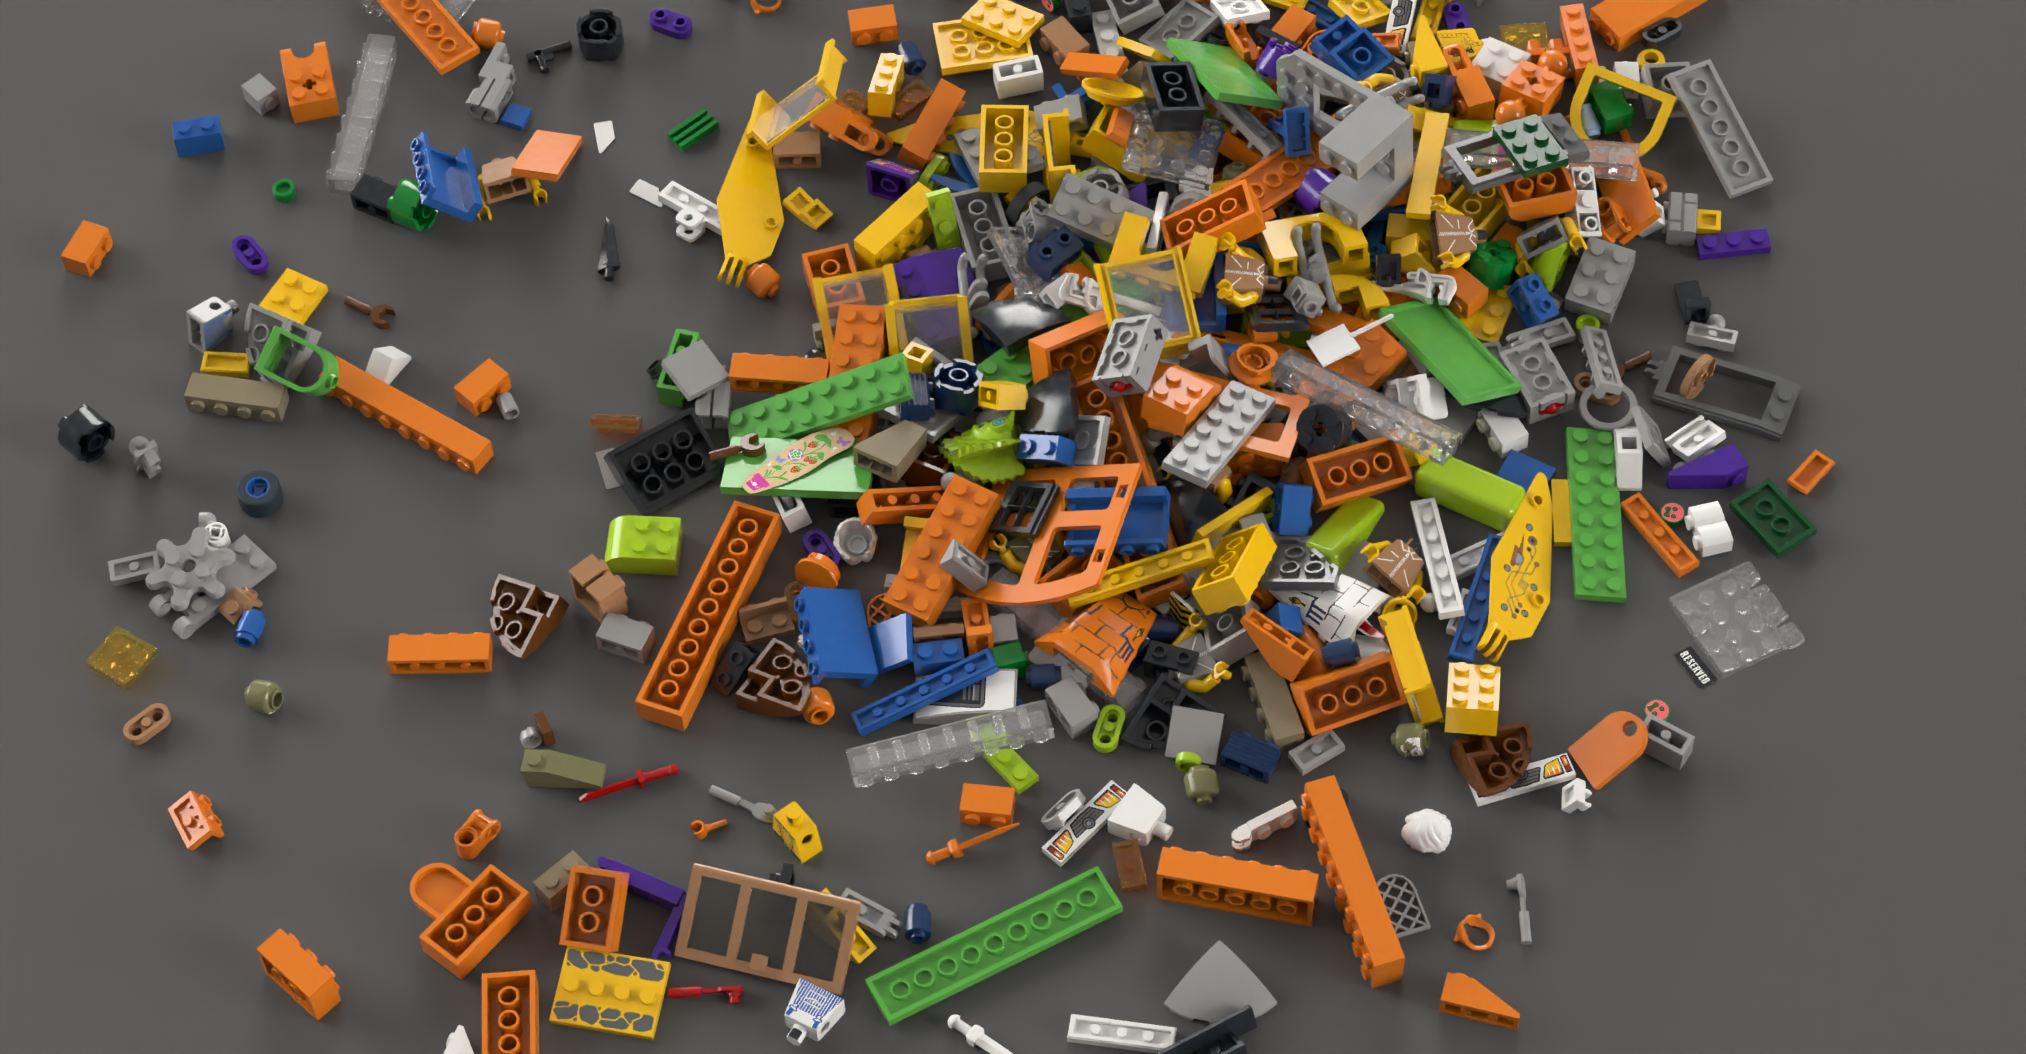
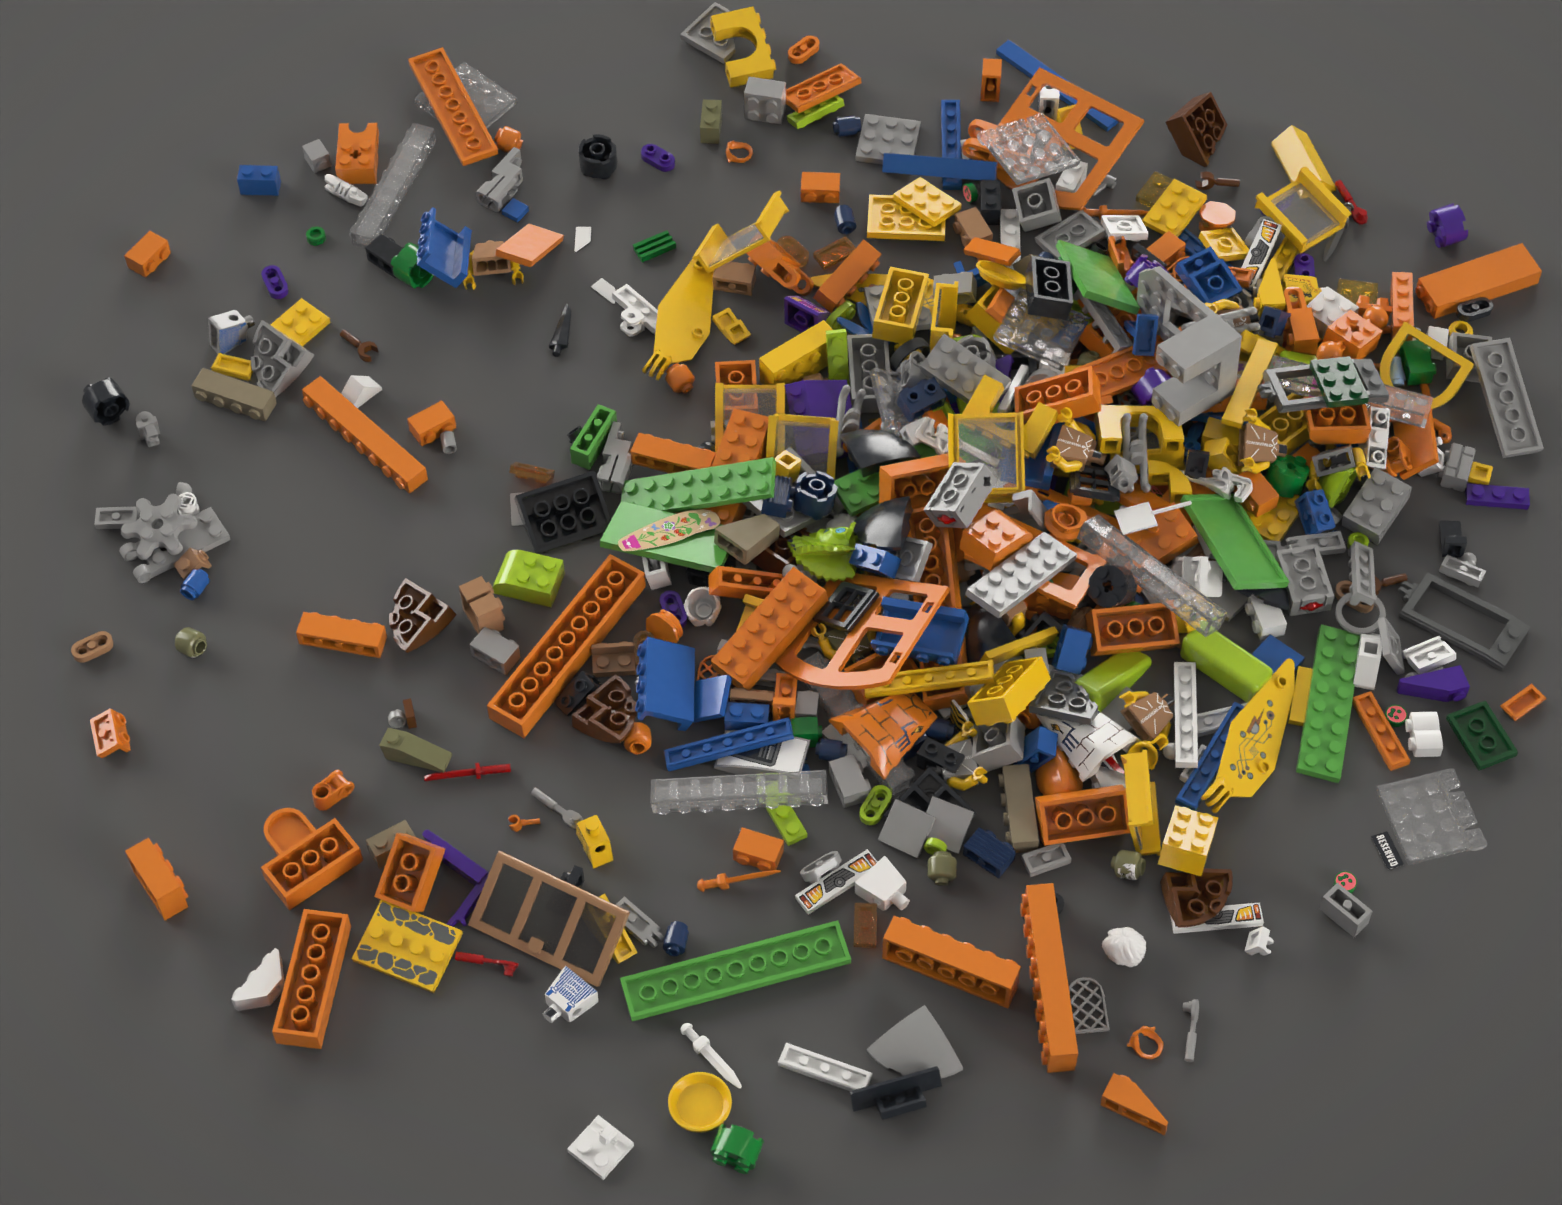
camera: 10 degrees right, 0 degrees up
(122, 657) = (87, 588): clear yellow plate -> none
(259, 493) = (231, 476): black wheel -> none
(274, 351) = (269, 365): bright green window -> none
(306, 130) = (345, 190): none -> white hinge
(546, 55) = (551, 165): black hose -> none
(695, 370) = (604, 441): light grey tile -> none
(746, 448) = (630, 512): reddish brown piece -> none
(884, 84) = (820, 232): yellow arch -> none
(965, 566) = (784, 645): light grey slope -> none
(1002, 395) = (848, 508): yellow brick -> none
(1018, 77) = (928, 250): white brick -> none
(1142, 50) = (1034, 246): yellow tile -> none
(1151, 747) = (906, 828): none -> light grey tile
(1264, 825) = (986, 914): white hinge -> none
(1279, 647) = (1031, 763): orange slope -> none
(1340, 653) = (1083, 779): dark blue brick -> none
(1608, 748) = (1296, 905): orange tile -> none
(1697, 374) = (1441, 601): medium nougat tile -> none

